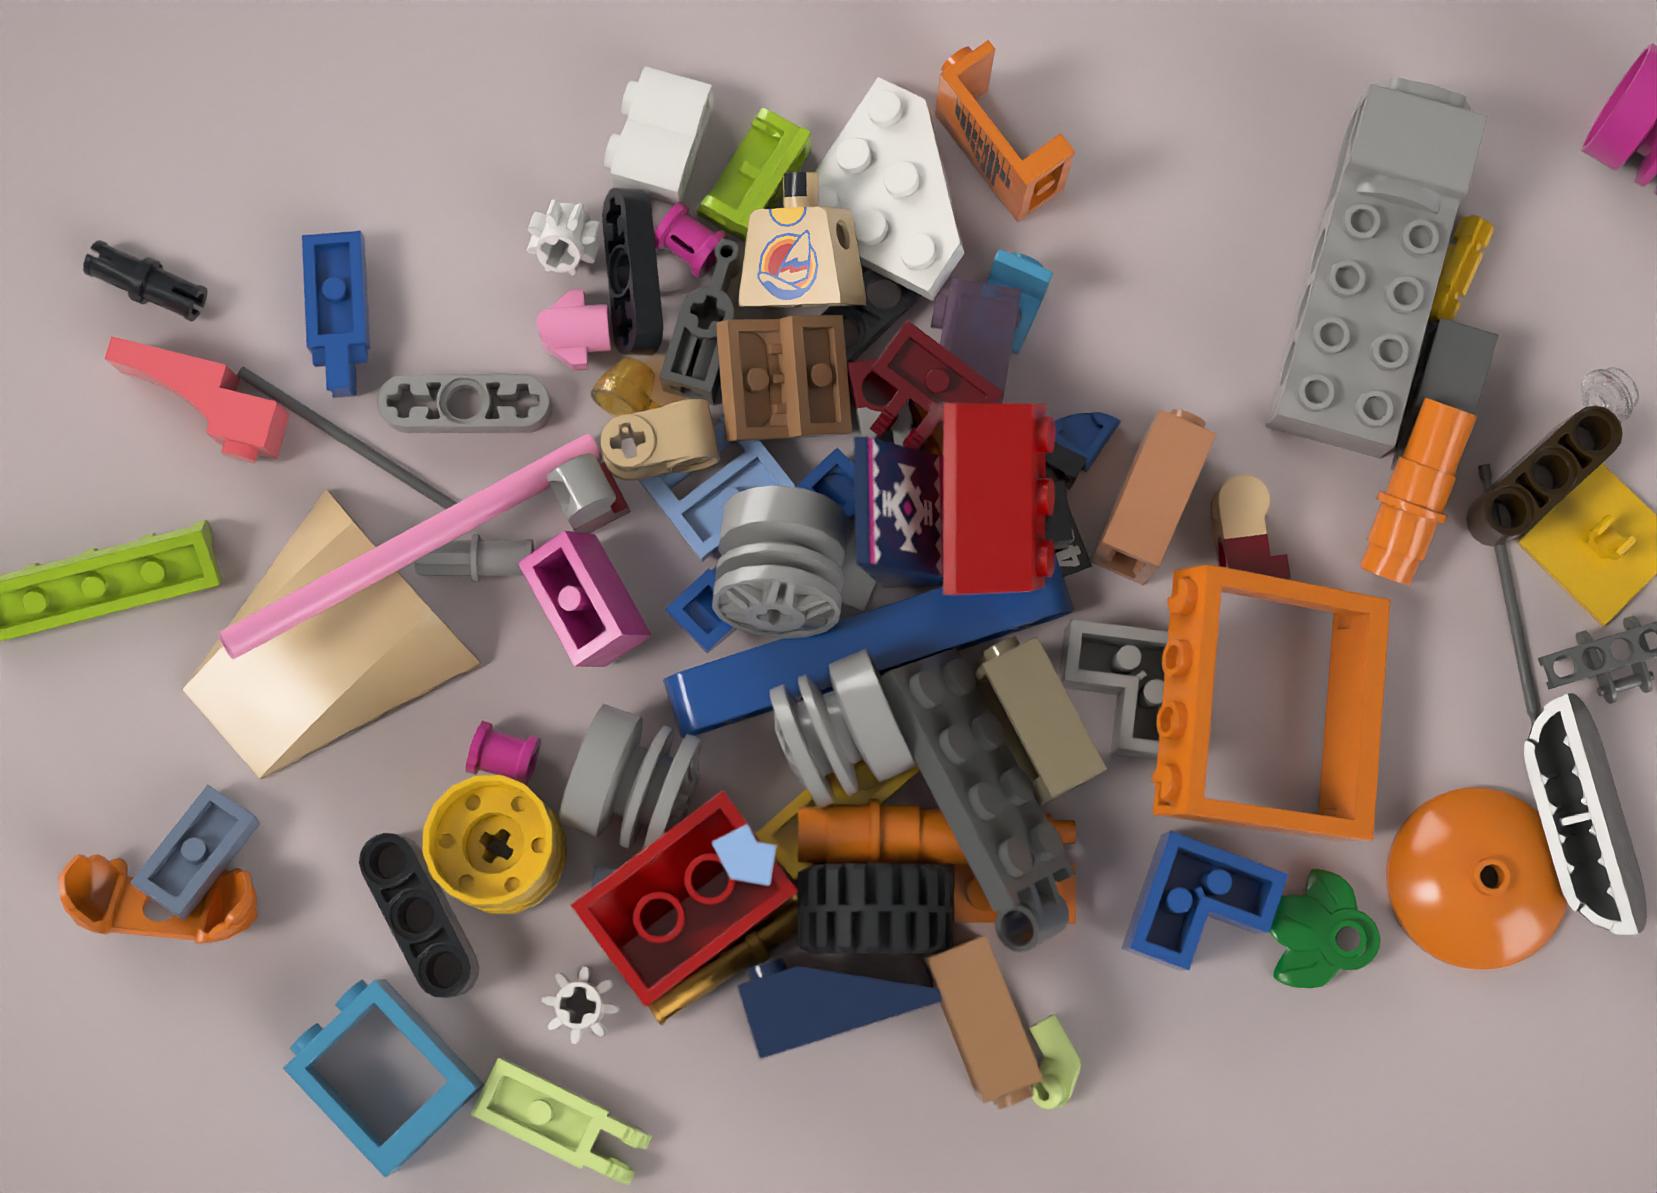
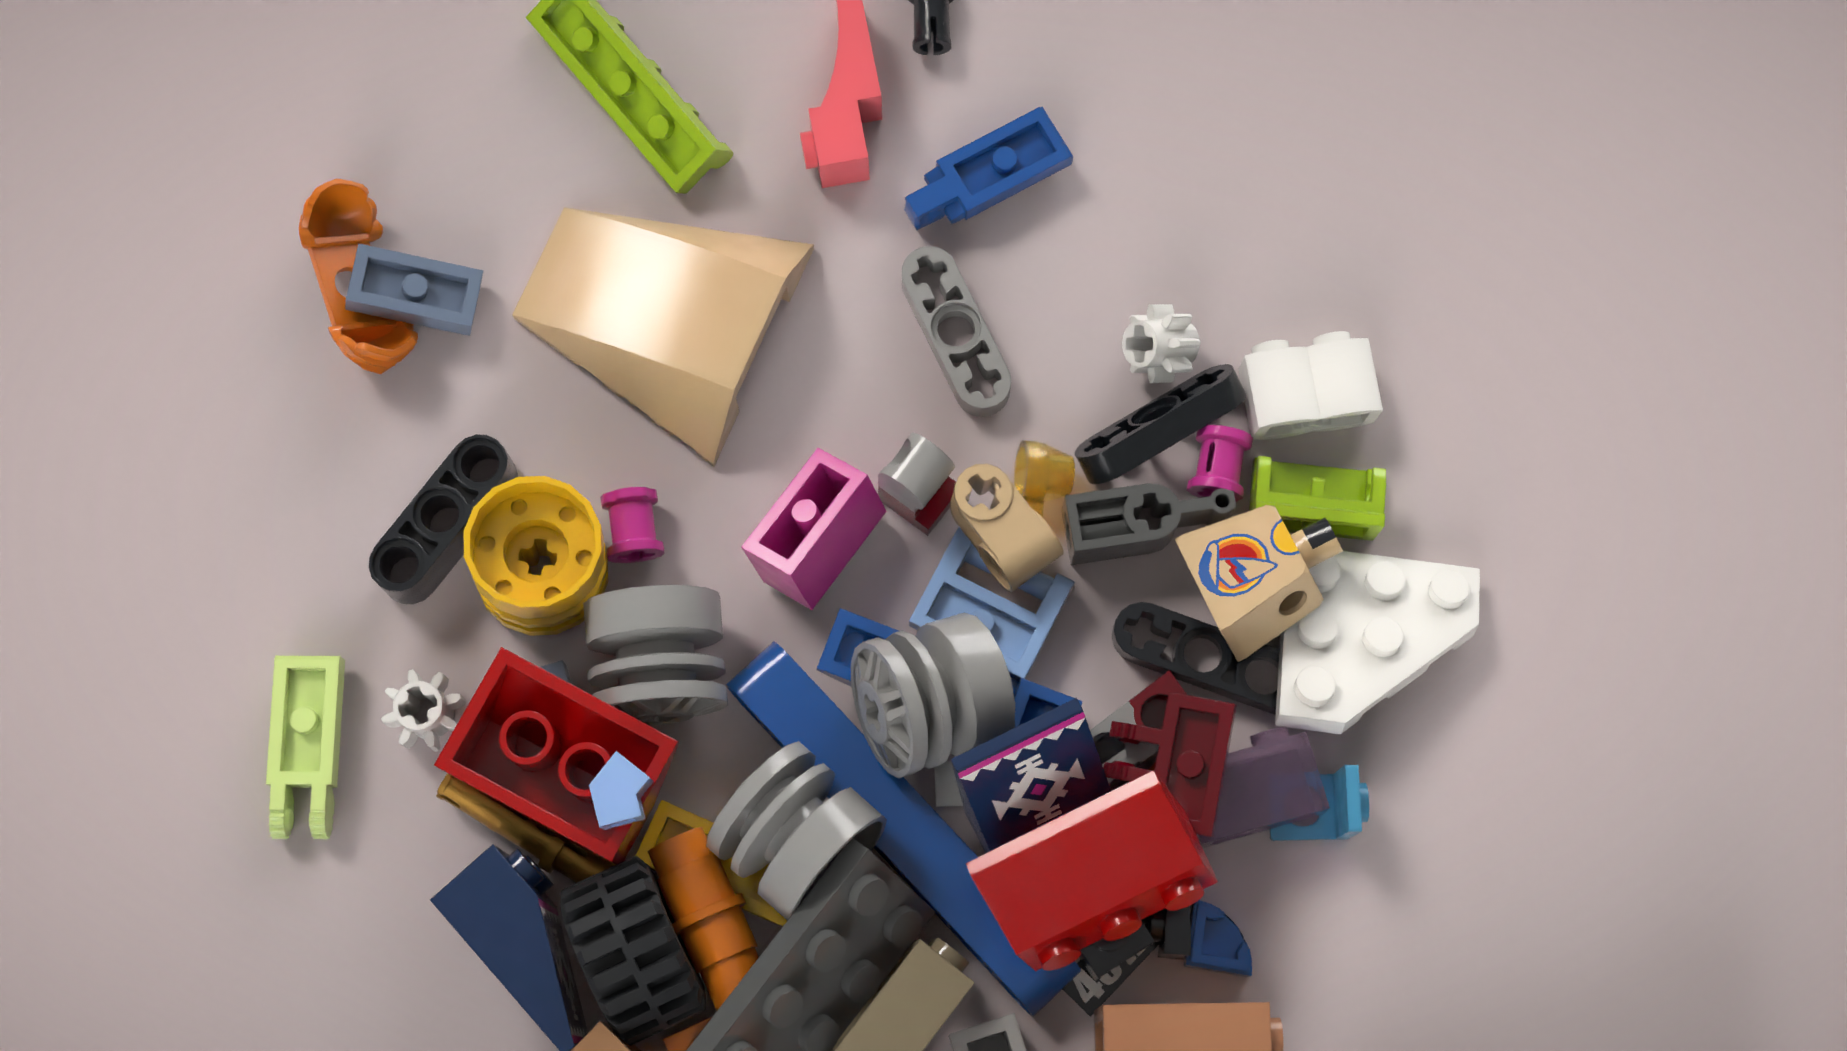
camera: 65 degrees right, 5 degrees down
(345, 438) = (868, 255): dark grey piece -> none
(398, 551) = (777, 334): bright pink piece -> none
(434, 1114) = (329, 579): dark azure window -> none
(475, 558) = (808, 405): light grey axle -> none
(575, 329) = (1078, 398): bright pink piece -> none
(784, 378) = (1124, 616): medium nougat slope -> none
(1016, 182) = (1450, 768): orange panel -> none

